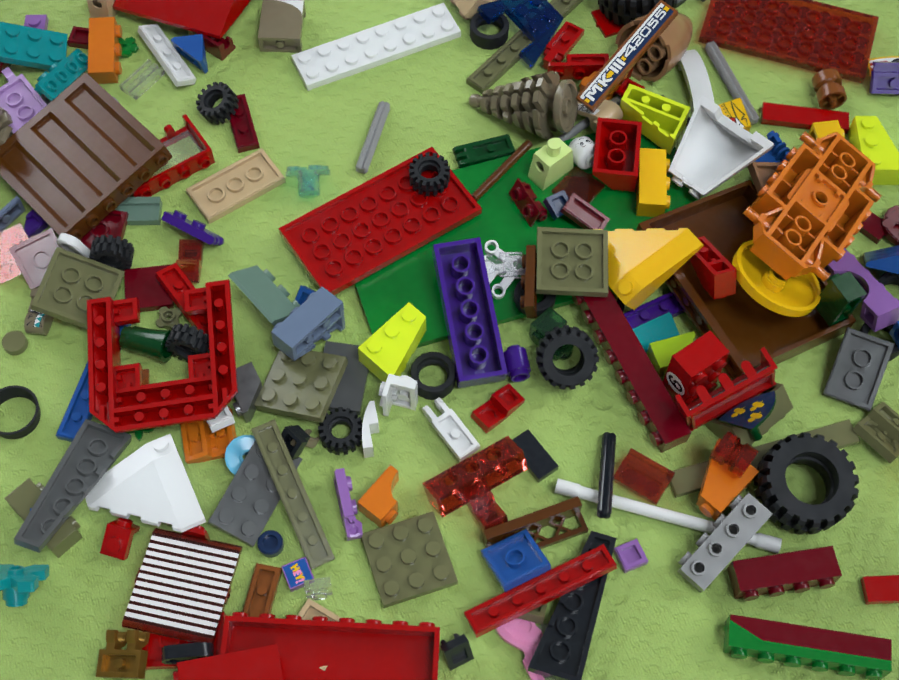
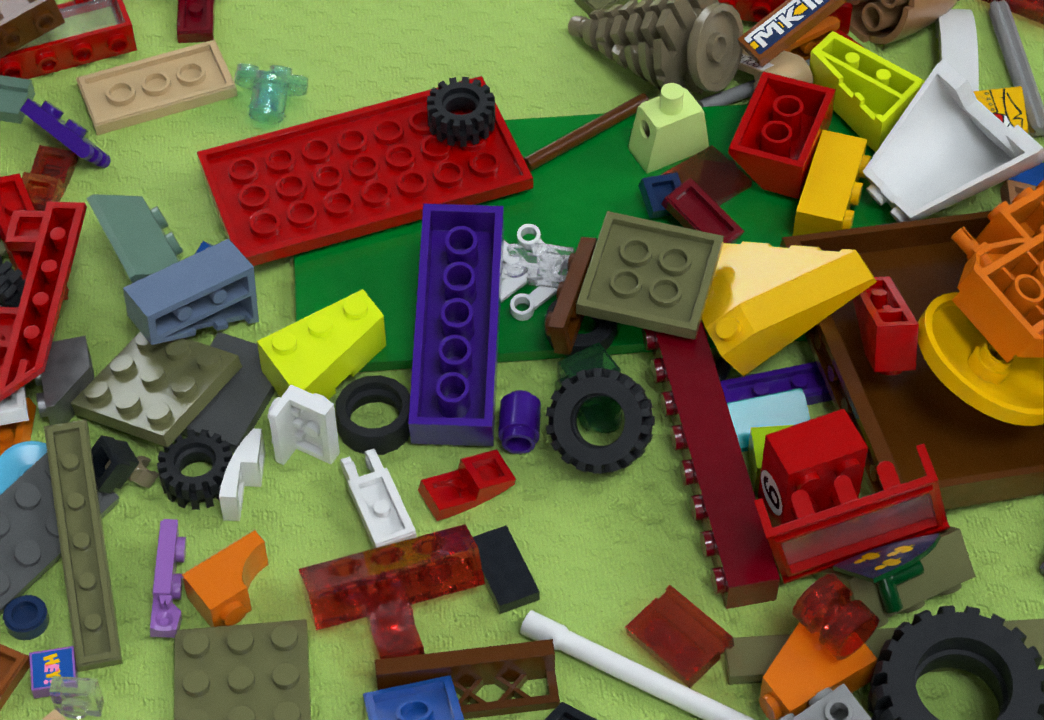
camera: 15 degrees right, 10 degrees down
(372, 137) = (395, 53): light grey axle -> none
(483, 150) = (567, 99): dark green hinge -> none
(525, 201) = (613, 182): dark red hinge -> none
(583, 151) = (723, 121): white head -> none
(606, 476) = (614, 620): black axle -> none

